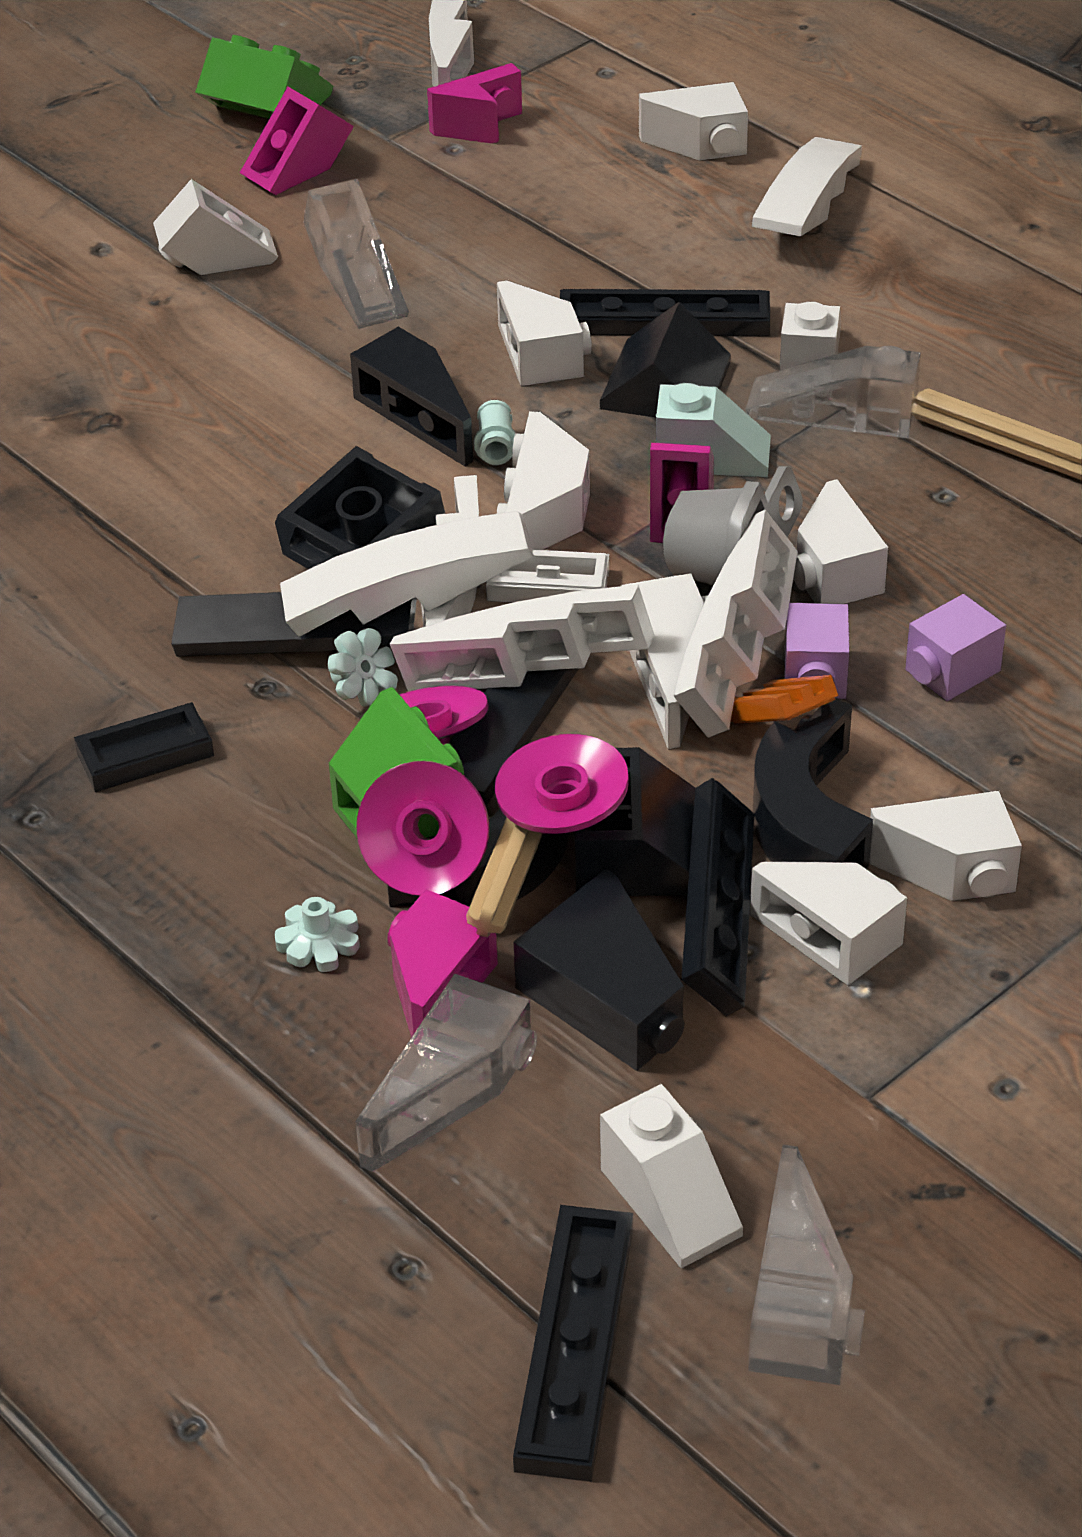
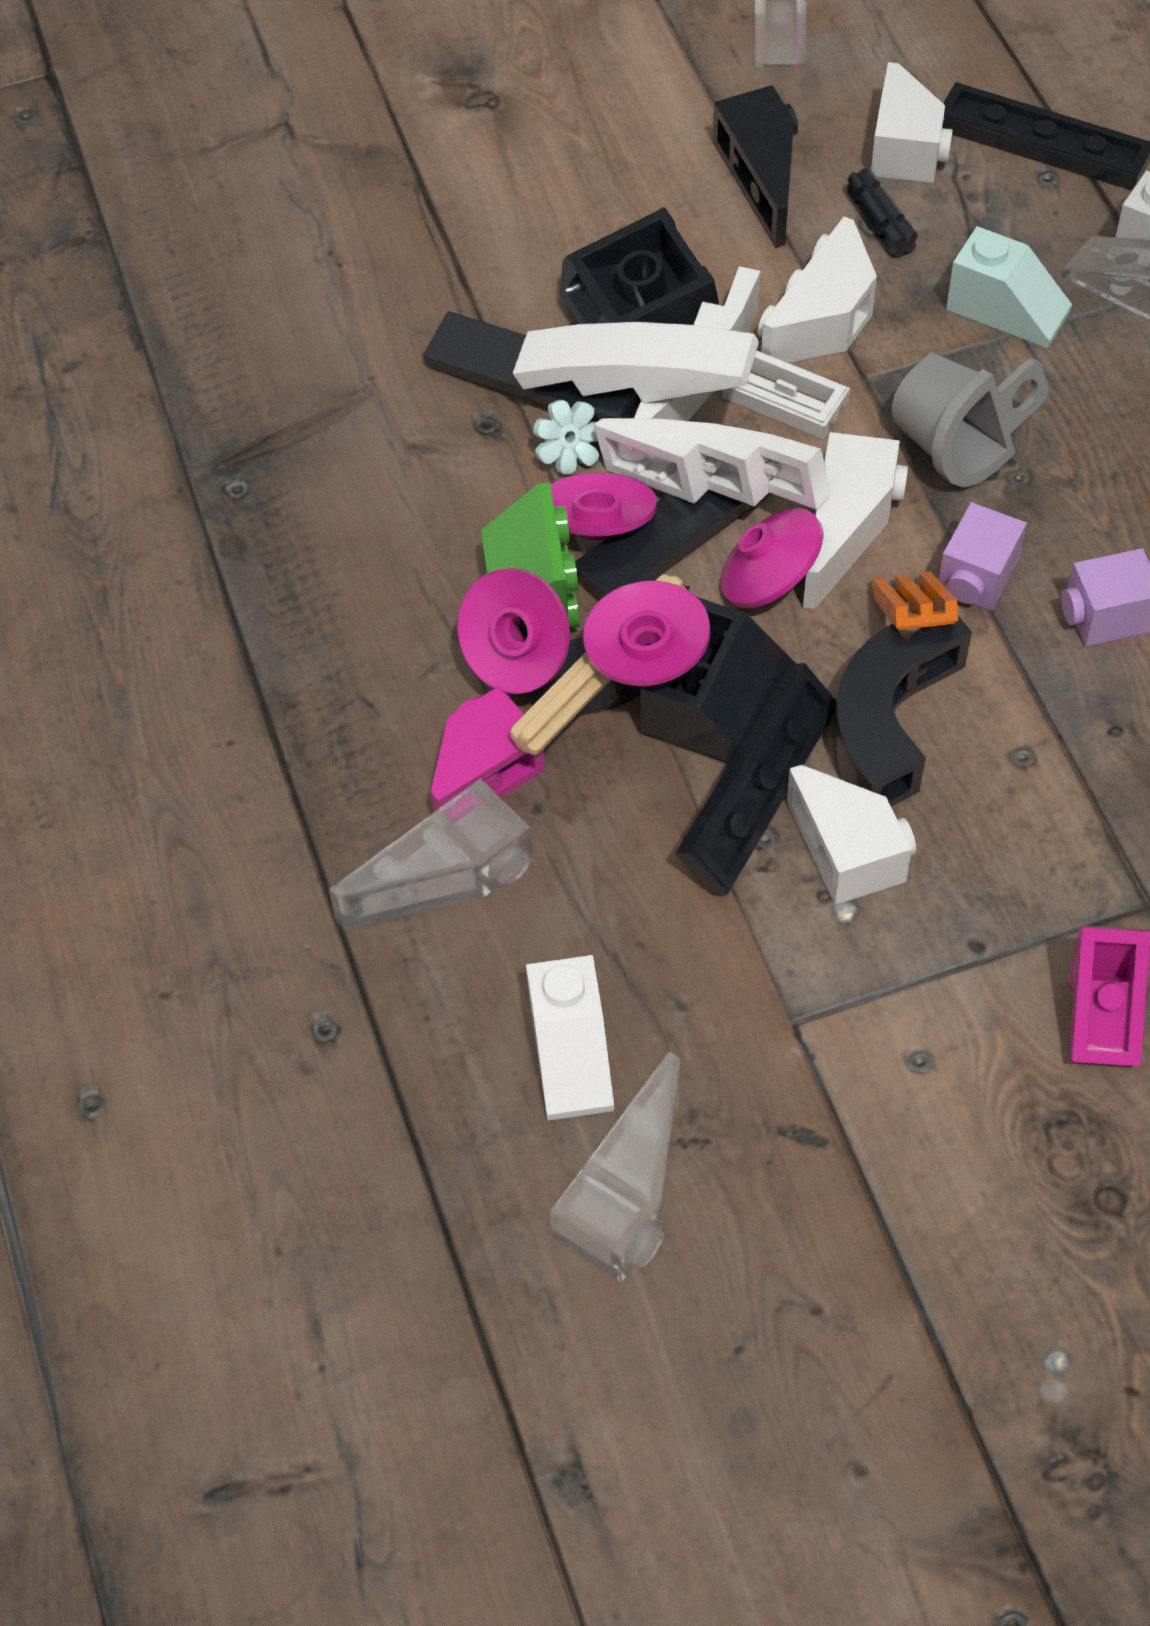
camera: 25 degrees right, 15 degrees up
(144, 746) = (354, 450): black tile -> none
(317, 933) = (406, 688): light aqua plant -> none
(495, 434) = (813, 222): light aqua pin -> none
(574, 1344) = (421, 1154): black tile -> none
(579, 422) = (882, 212): none -> black axle
(603, 973) = (617, 817): black slope -> none
(627, 701) = (771, 558): none -> dark pink dish
(664, 352) = (1013, 195): black slope -> none
(675, 470) = (945, 332): dark pink slope -> none
(740, 611) = (919, 498): white slope -> none
(839, 551) = (1058, 455): white slope -> none
(949, 845) = (992, 803): white slope -> none

